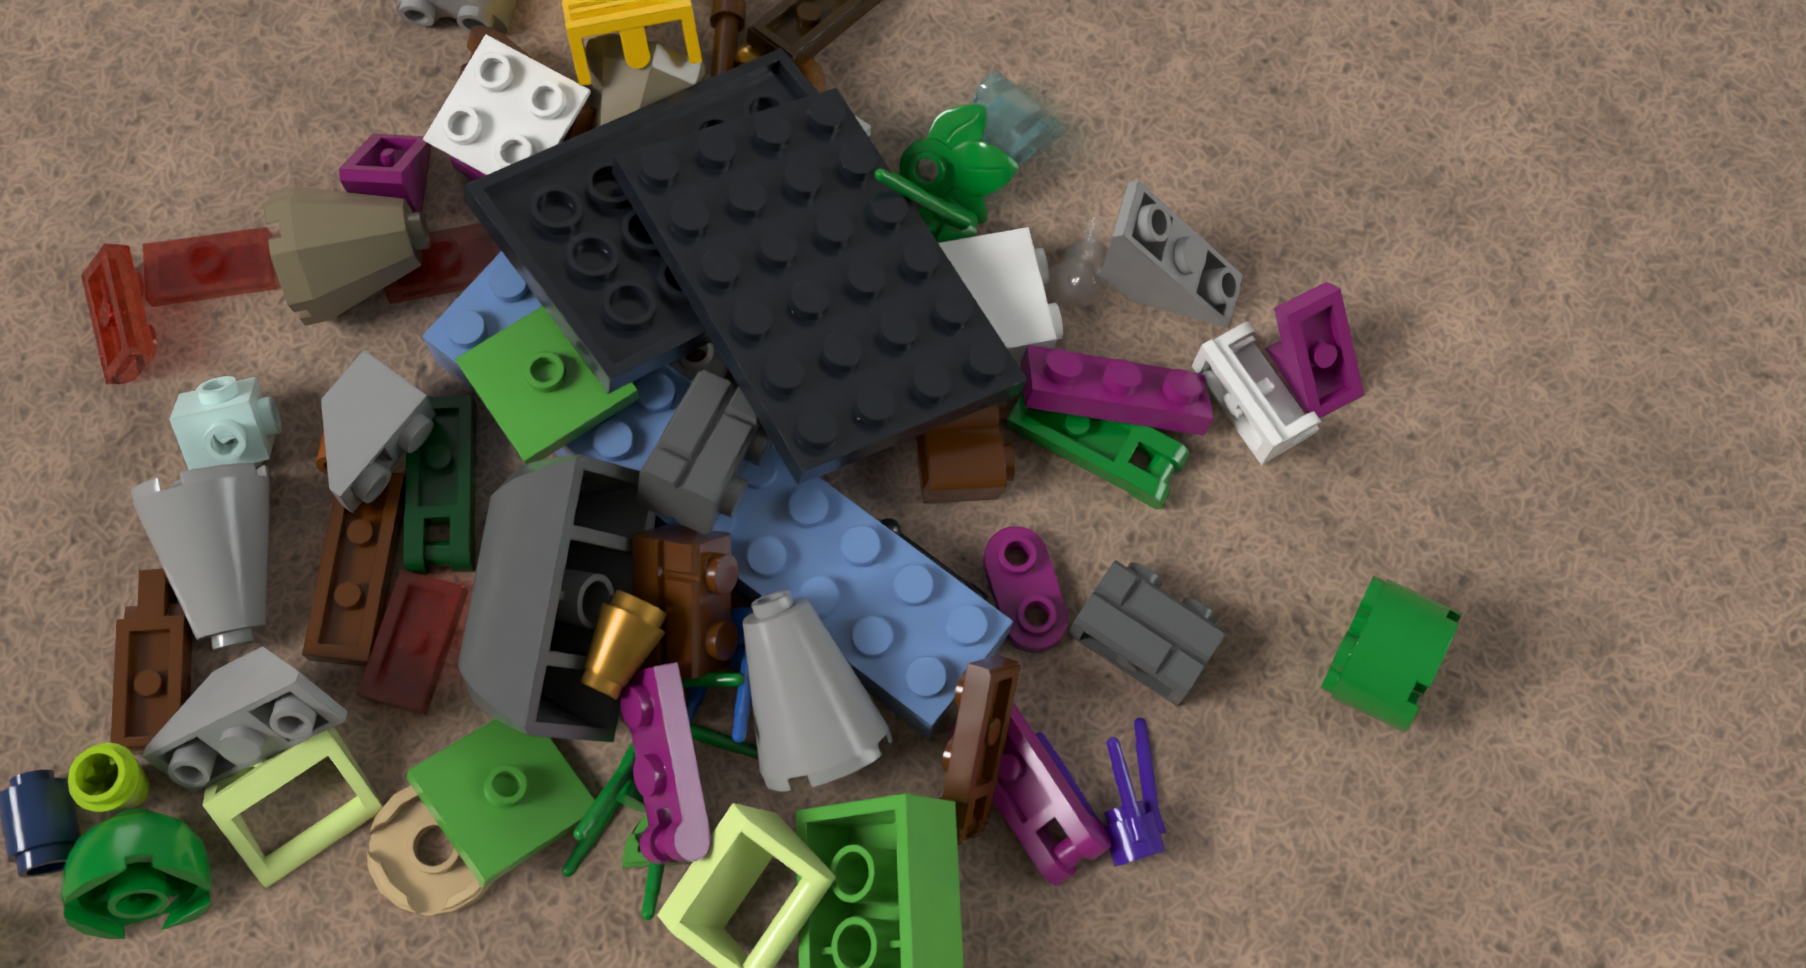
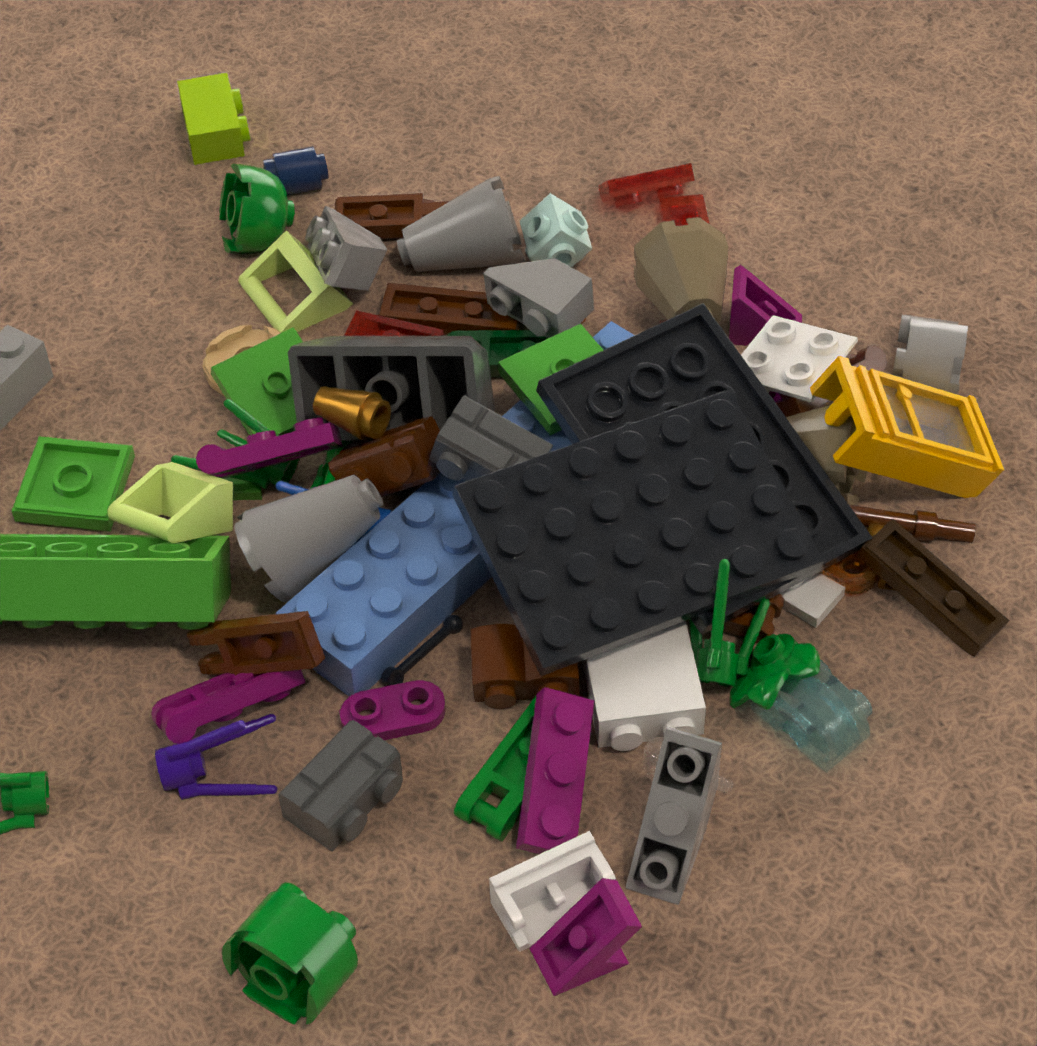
camera: 100 degrees right, 20 degrees down
(107, 779) = (311, 190): lime cone -> none

